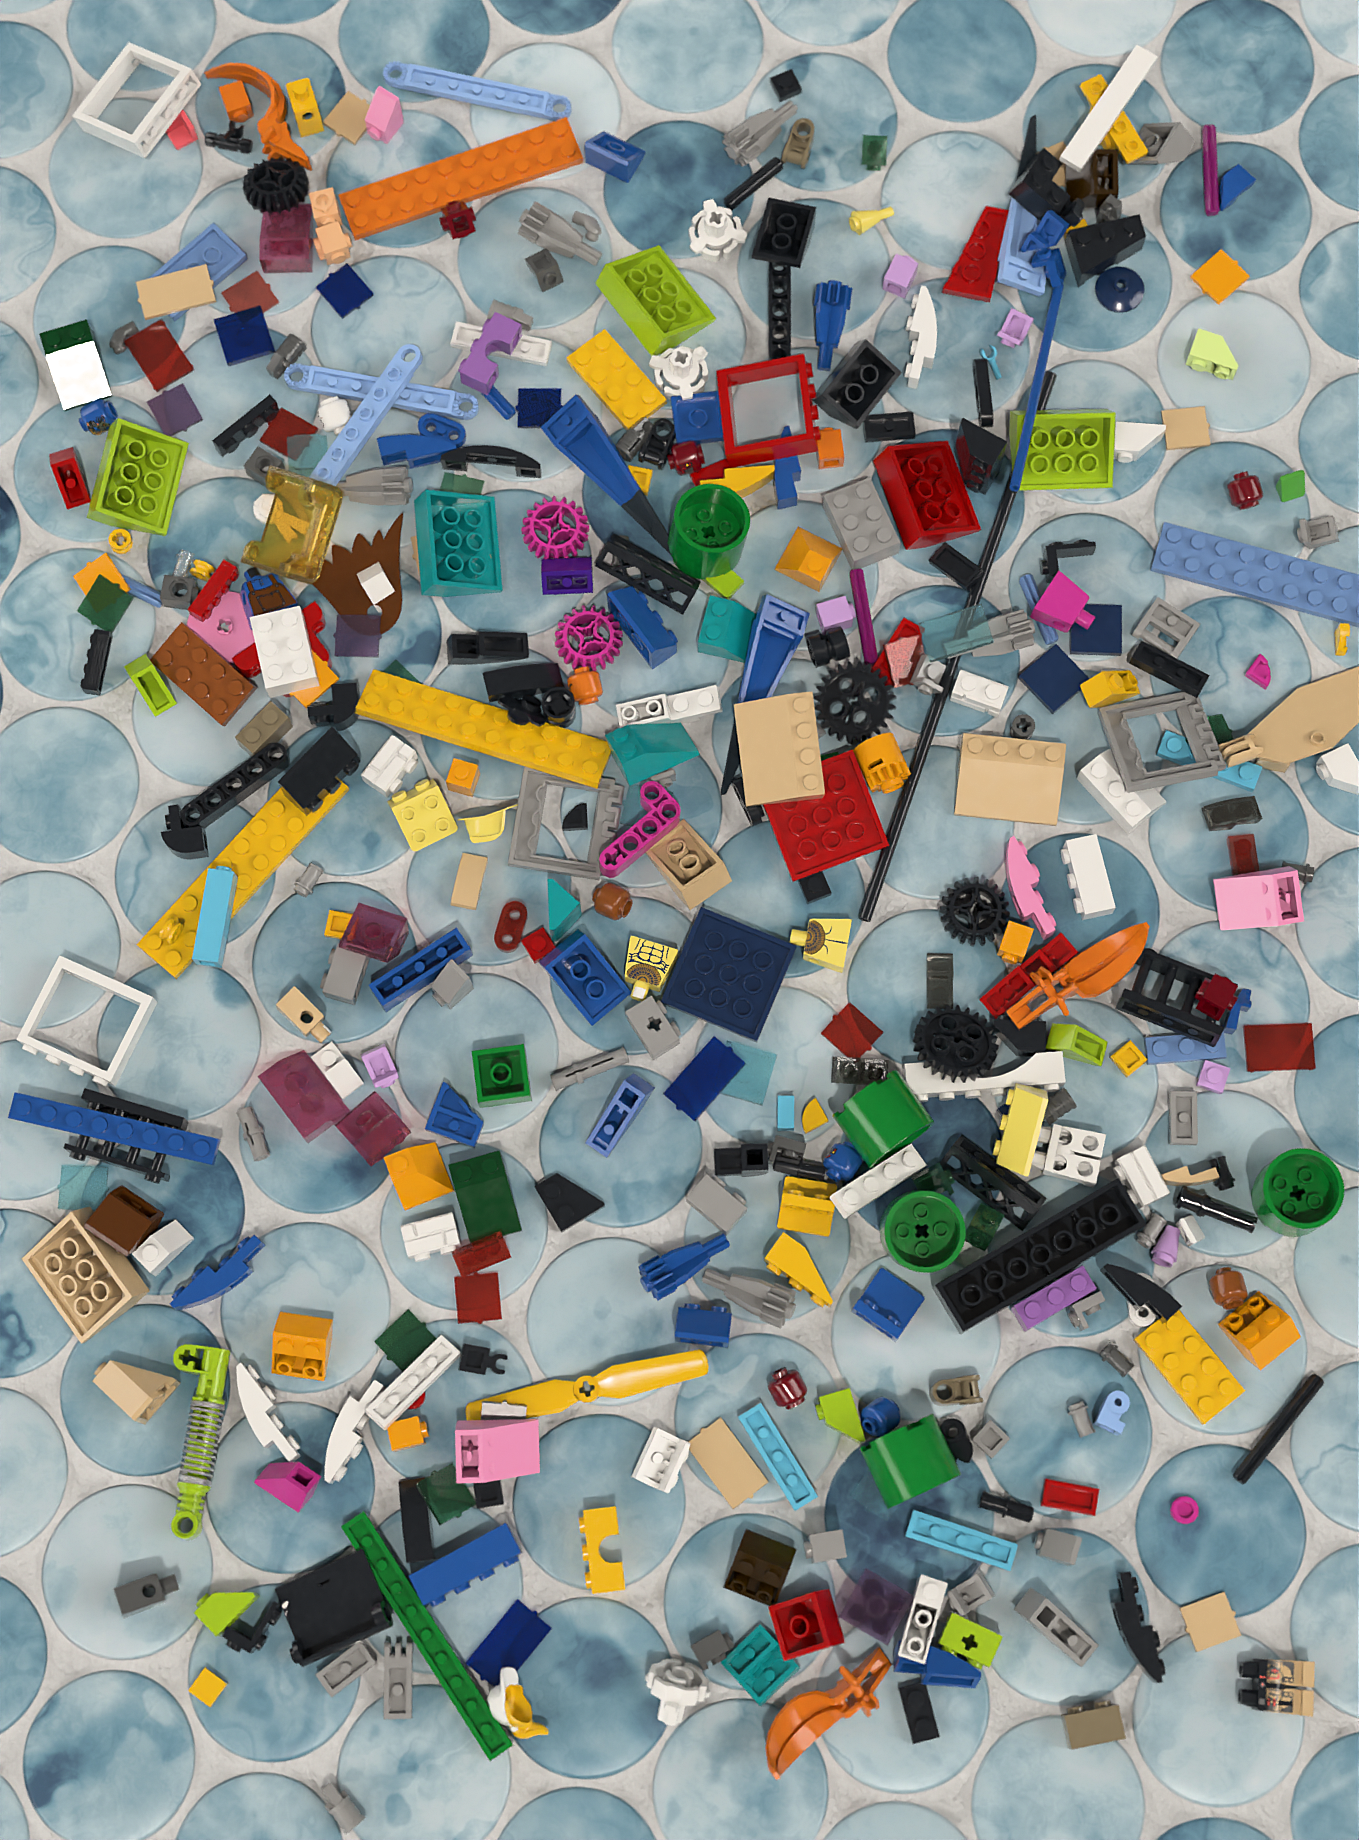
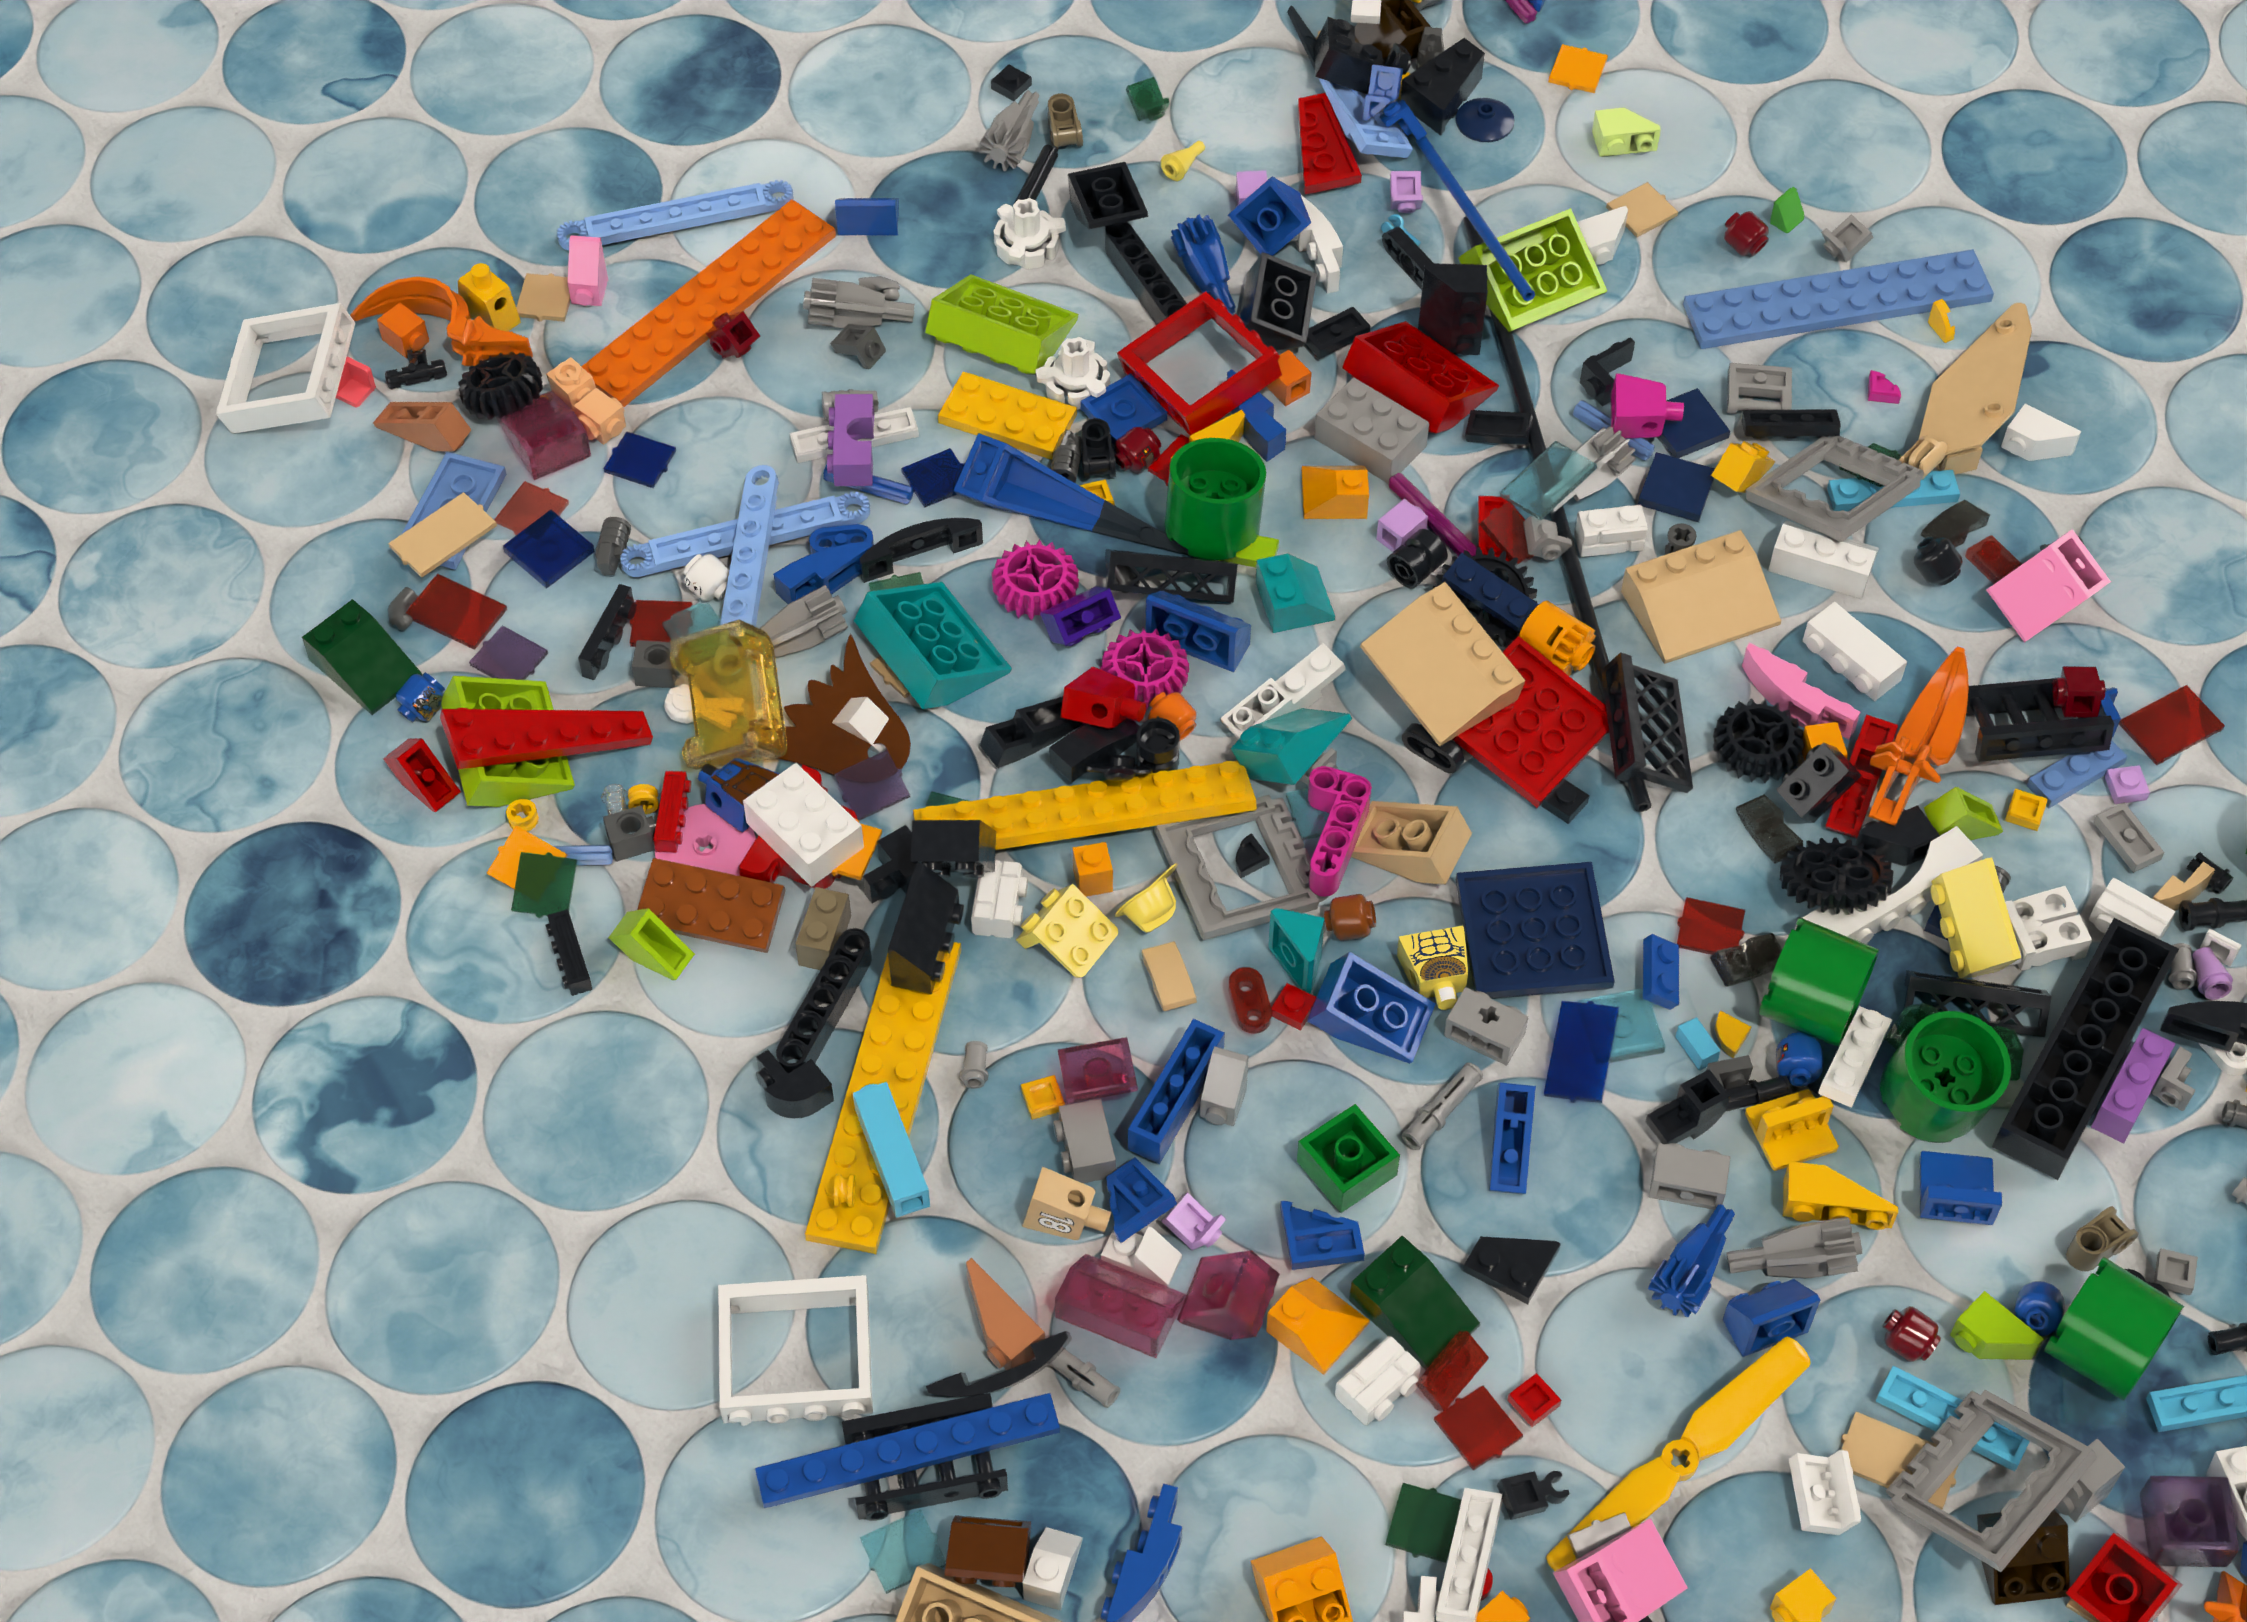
camera: 30 degrees left, 20 degrees down
(138, 485) = (517, 735): none -> red wing
(173, 1102) = (1044, 1351): none -> black slope
(210, 191) = (427, 424): none -> nougat slope
(221, 1074) = (1003, 1322): none -> nougat slope
(352, 1032) = (1136, 1198): none -> blue wing
(367, 723) = (954, 846): none -> black brick
(521, 1301) = (1534, 1400): none -> red plate
(539, 652) = (1101, 700): none -> red torso
(770, 648) = (1355, 582): blue plate -> none
(782, 1543) = (2019, 1516): none -> light grey hinge
(794, 1049) = (1661, 971): none -> blue plate
(824, 942) = (1619, 847): light yellow torso -> none
(855, 704) = (1489, 592): none -> dark blue plate
(888, 847) = (1627, 724): none -> black fence
(896, 308) = (1271, 216): none -> blue slope
(988, 968) = (1818, 782): none -> black brick
(1196, 837) = (1938, 560): none -> black head

